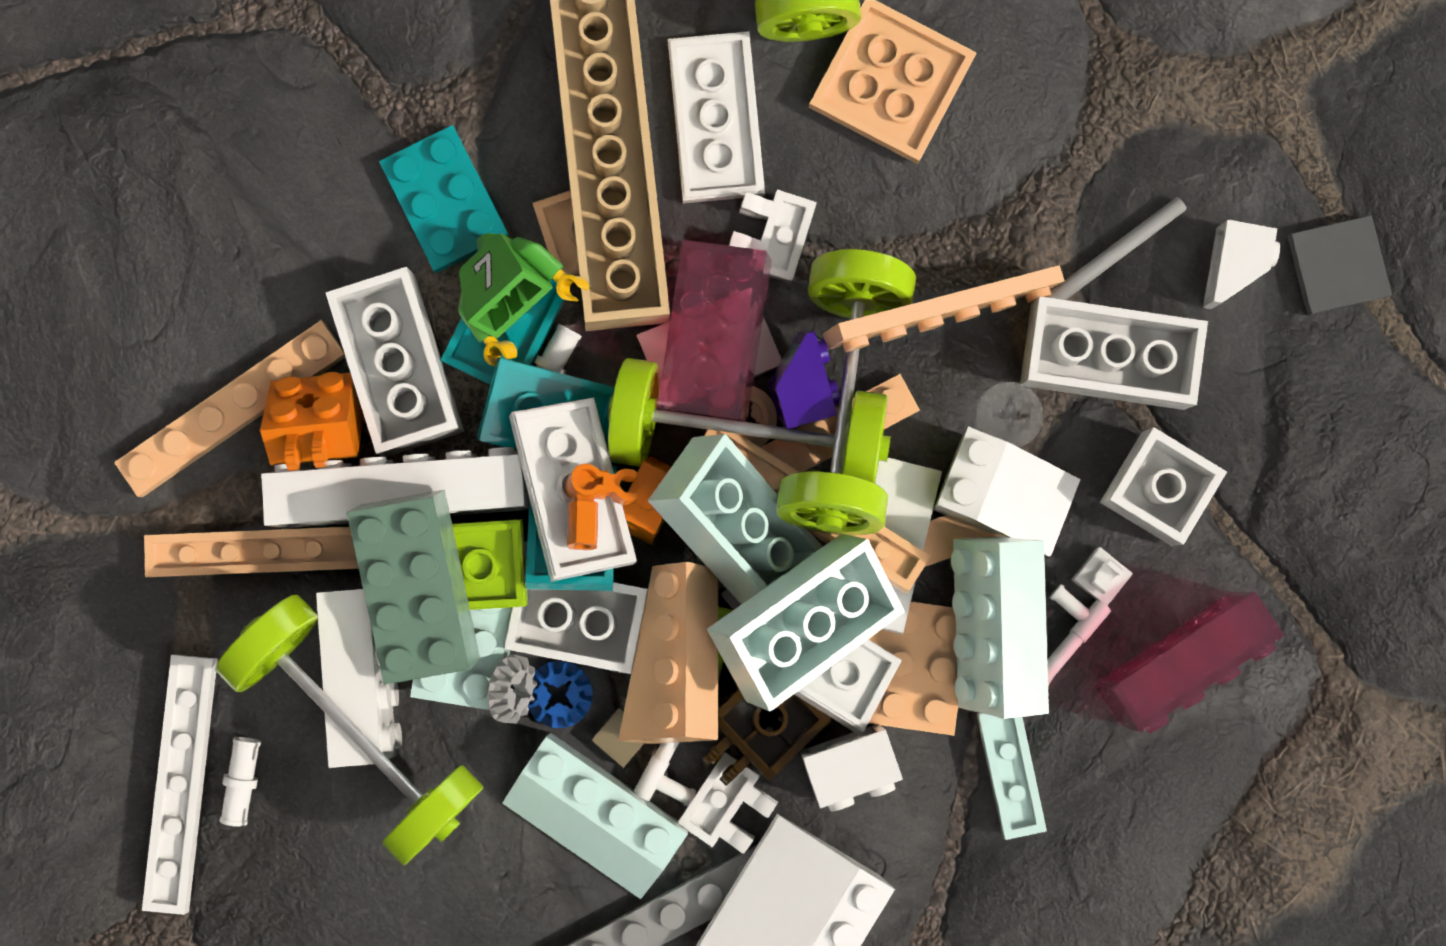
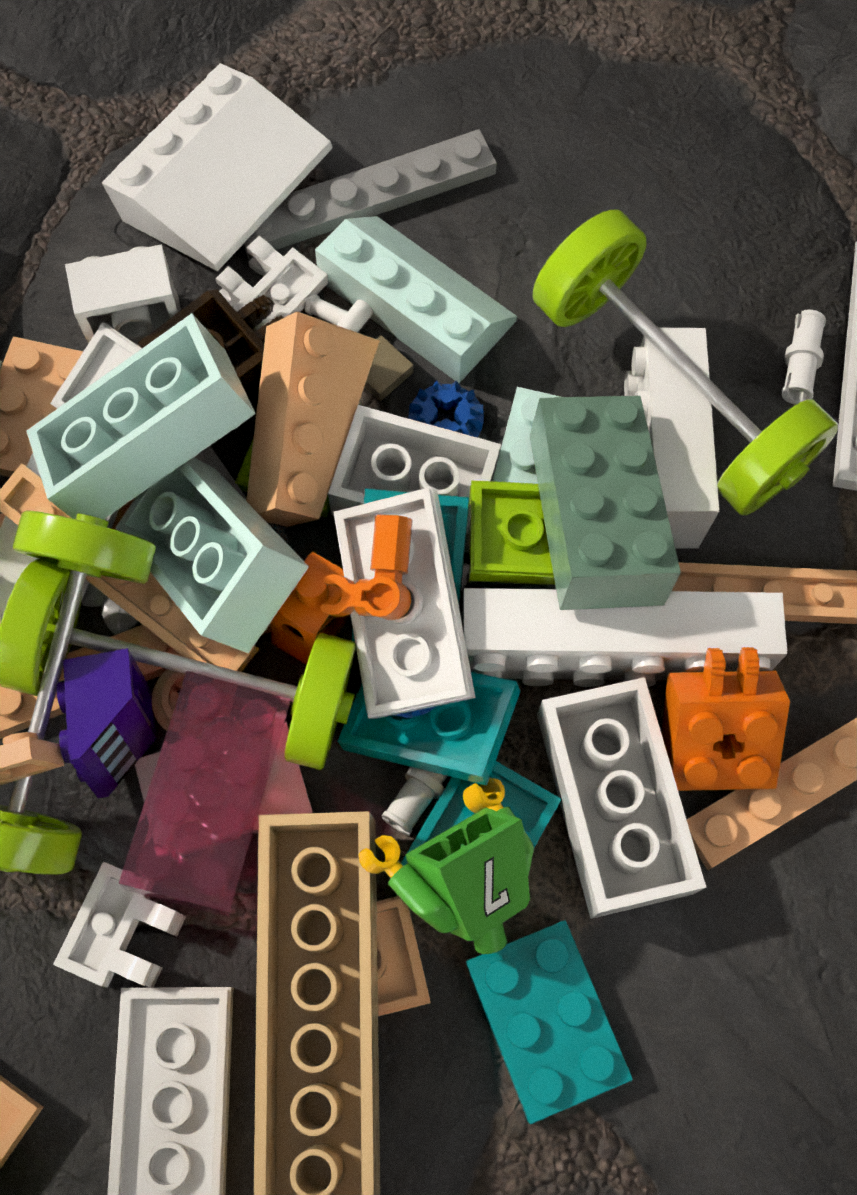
camera: 175 degrees left, 15 degrees down
(502, 701) = (496, 406): light grey gear -> none

